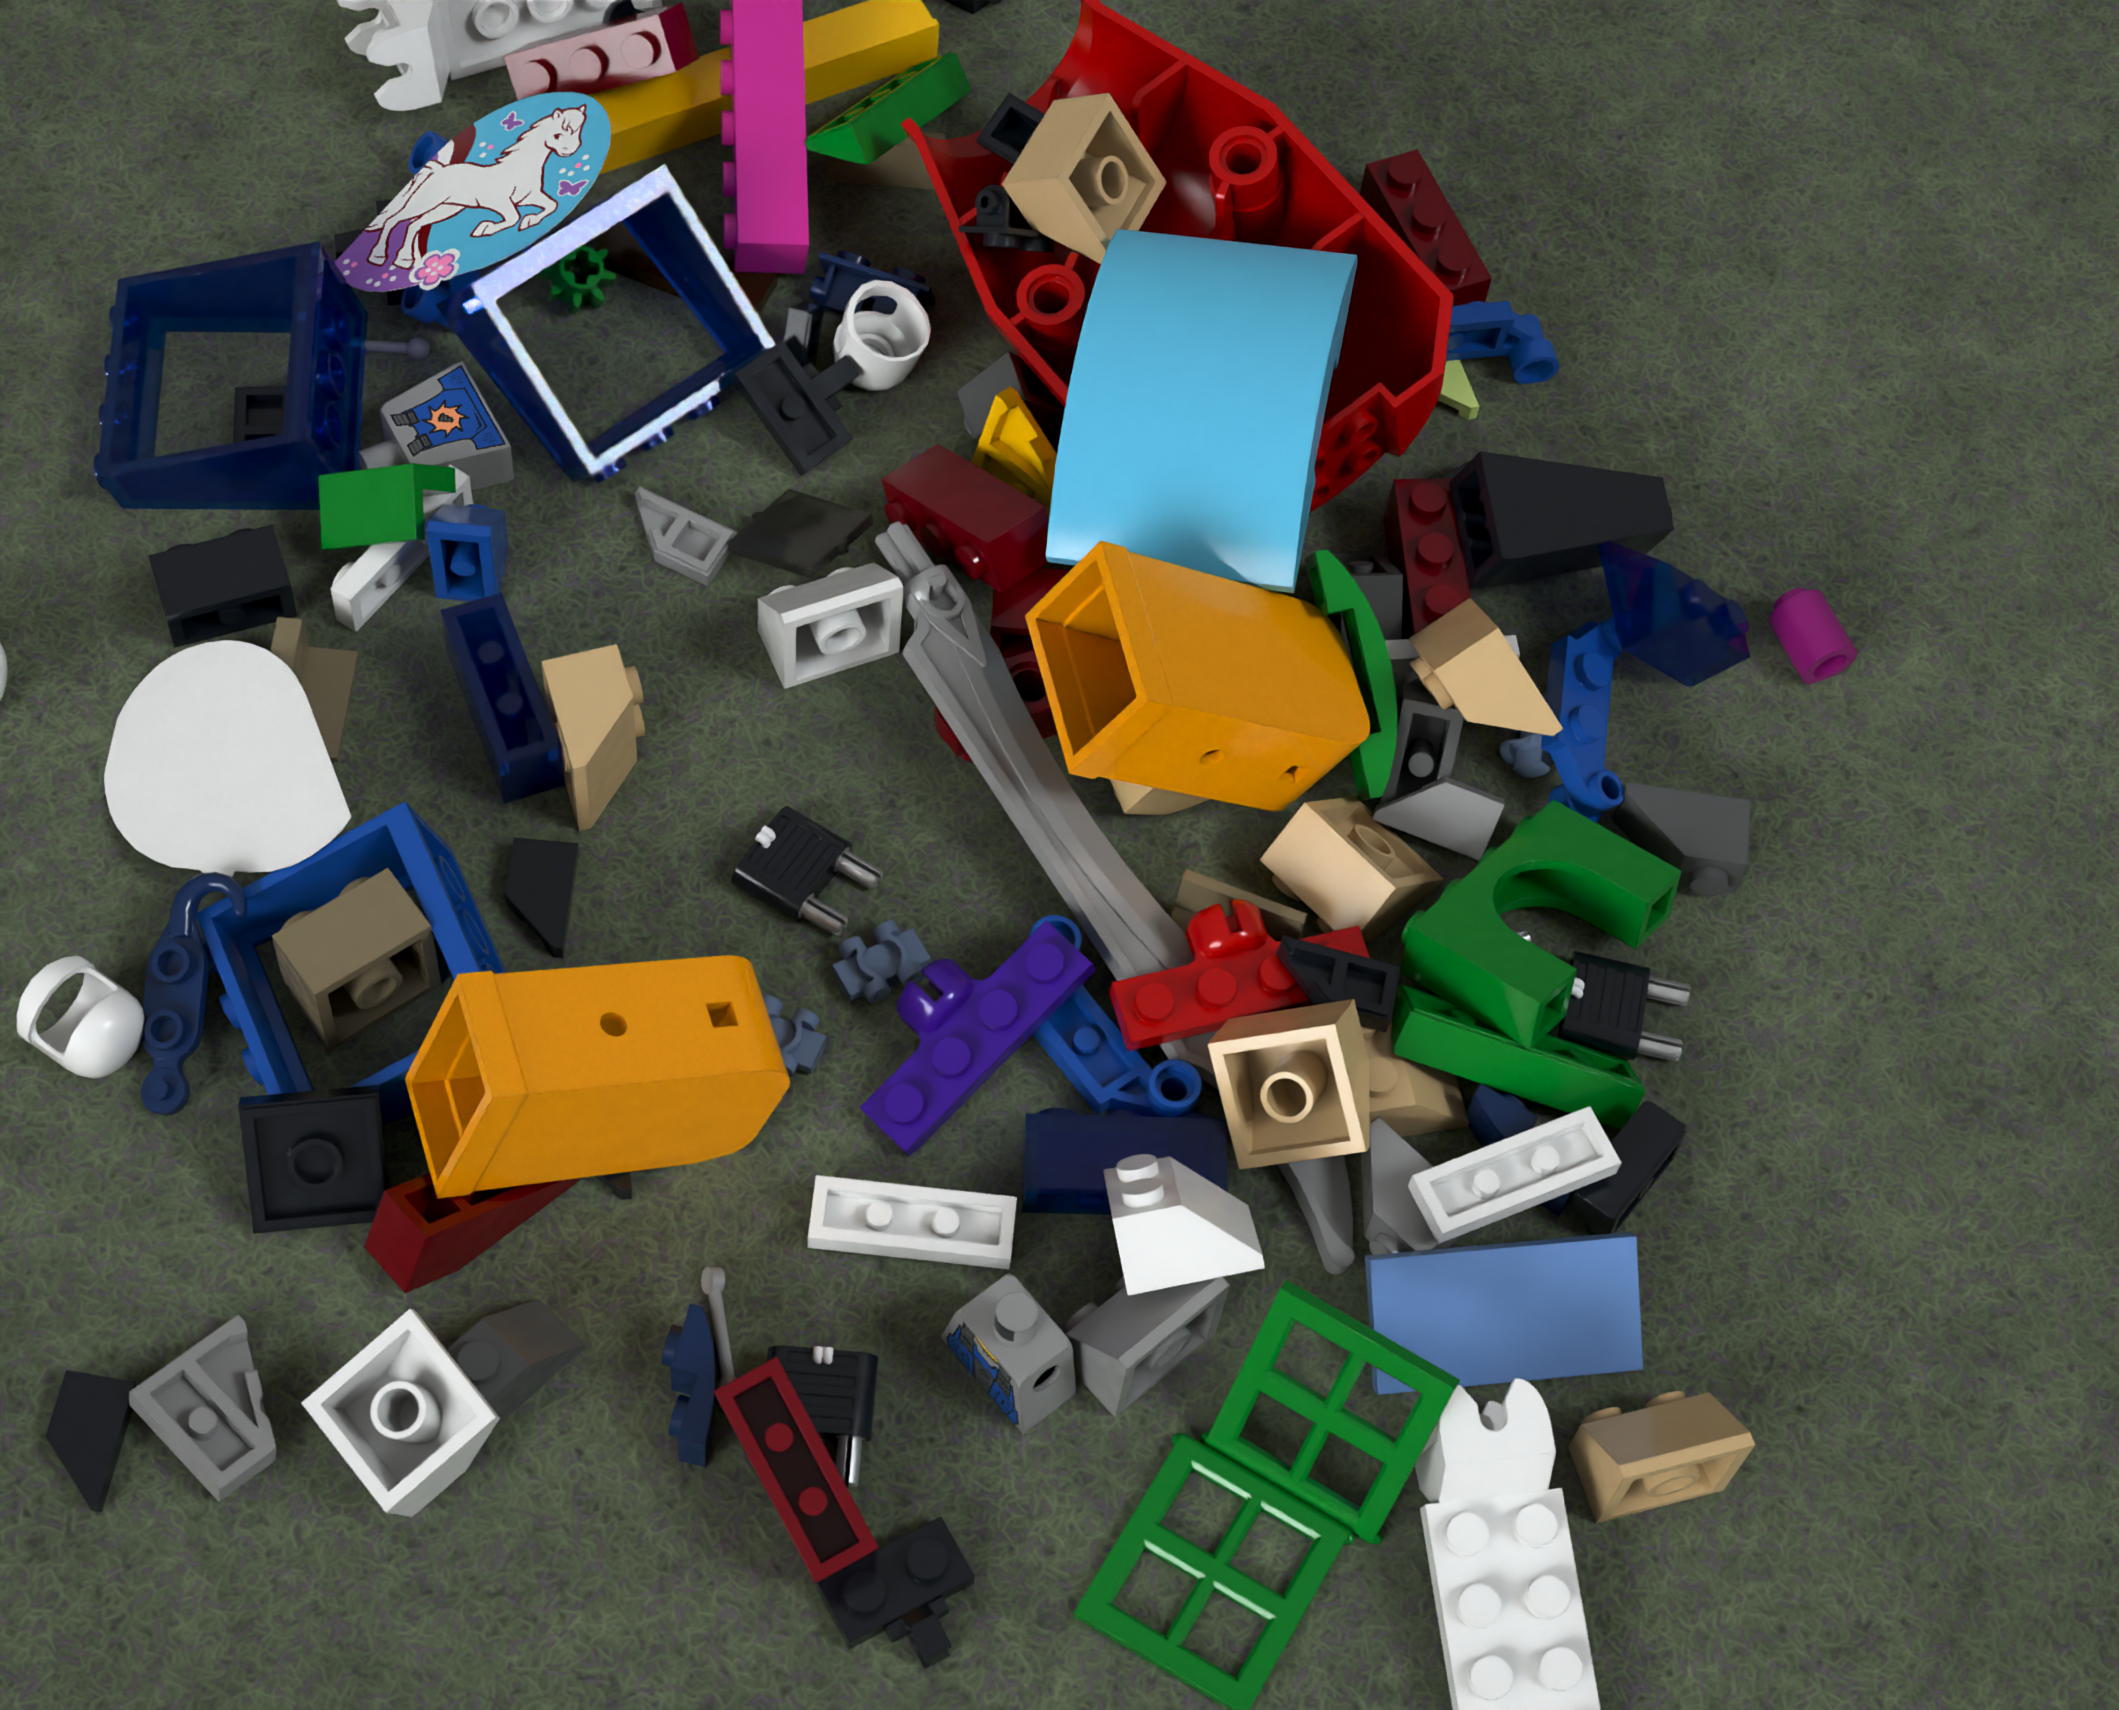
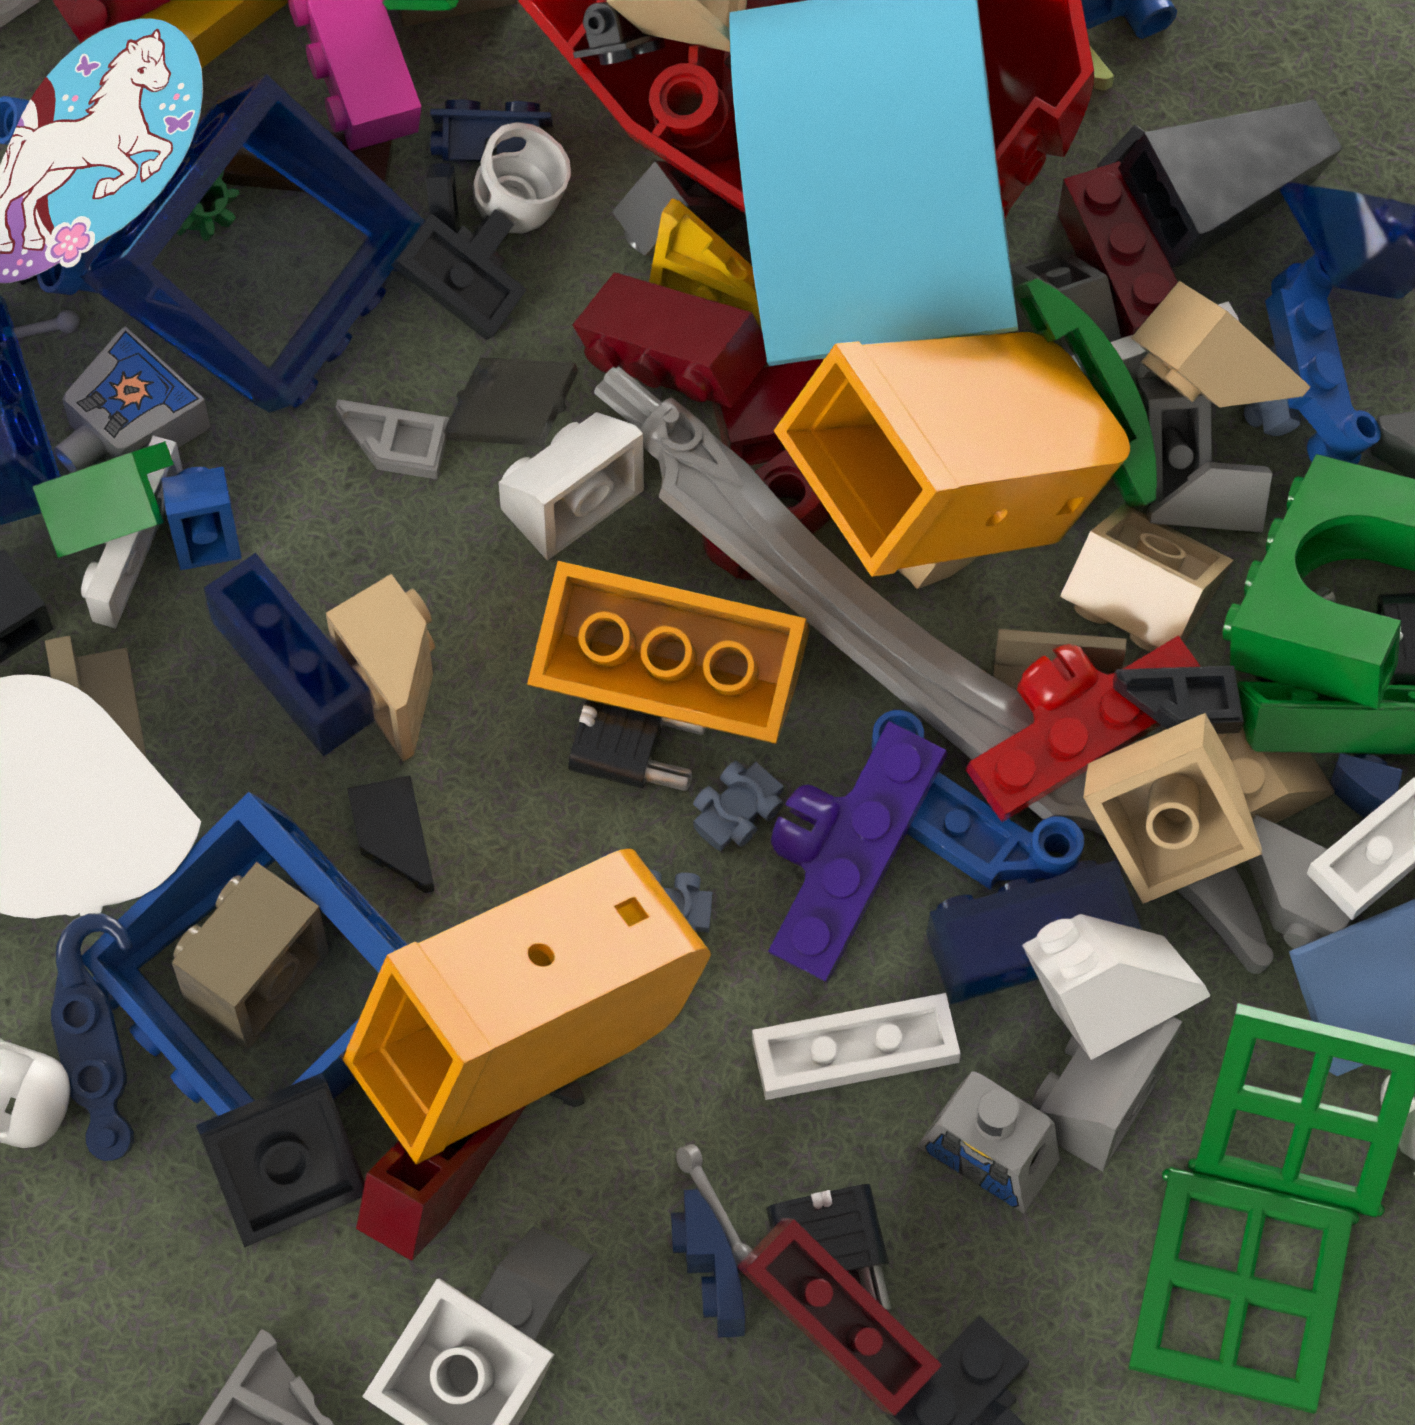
camera: 10 degrees left, 5 degrees up
(864, 800) = (669, 652): none -> light orange slope

